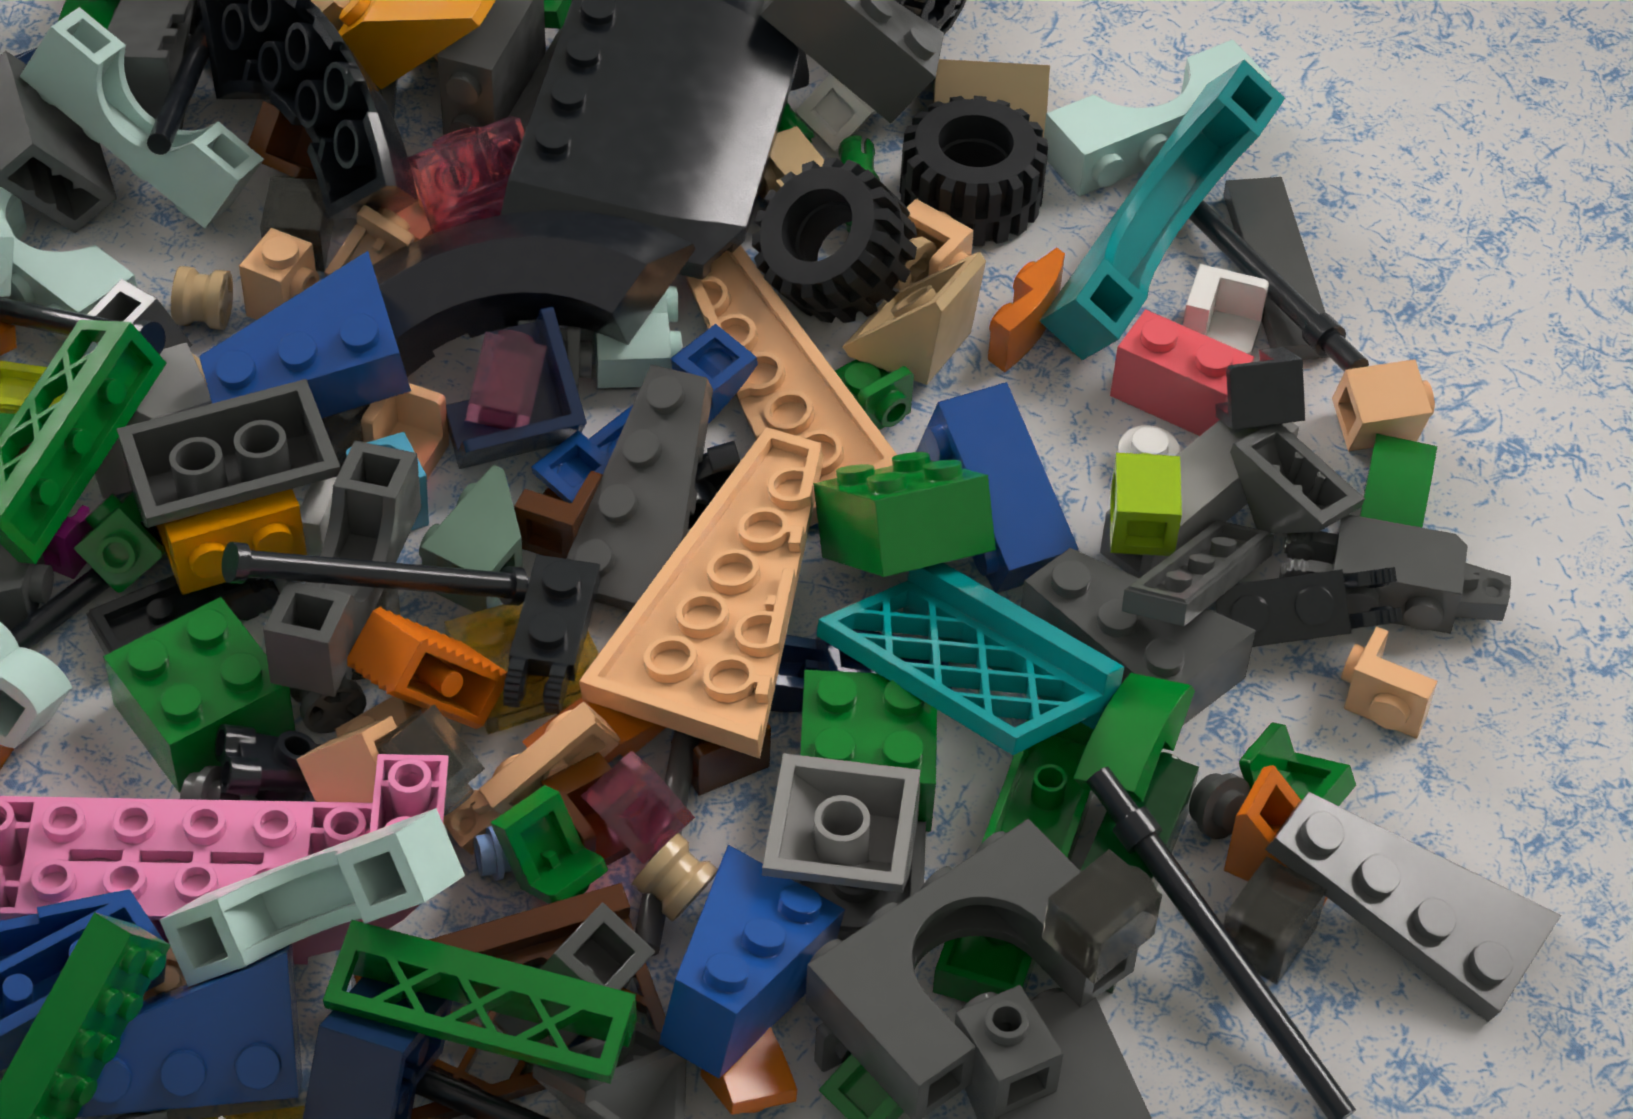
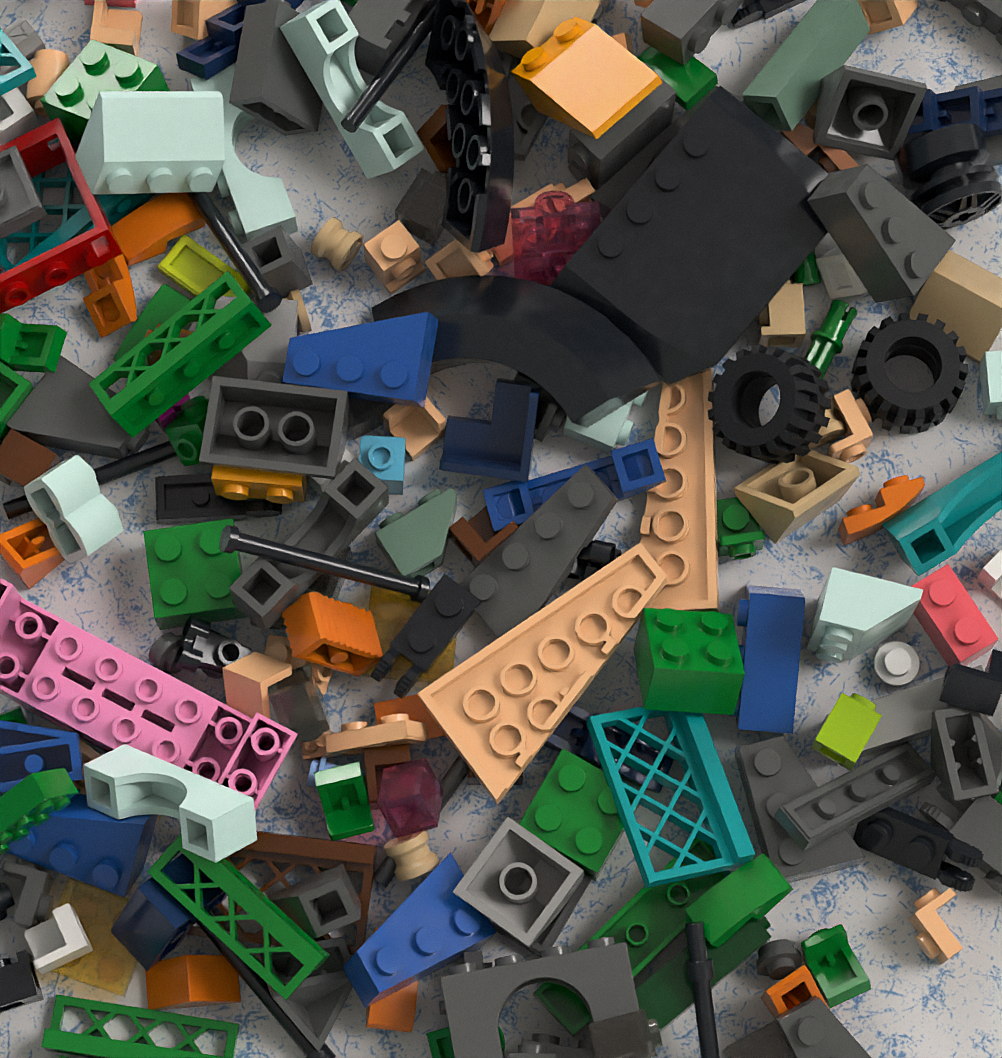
camera: 30 degrees right, 25 degrees up
(506, 380) = (488, 428): clear pink brick -> none
(1080, 378) = (858, 614): none -> light aqua slope

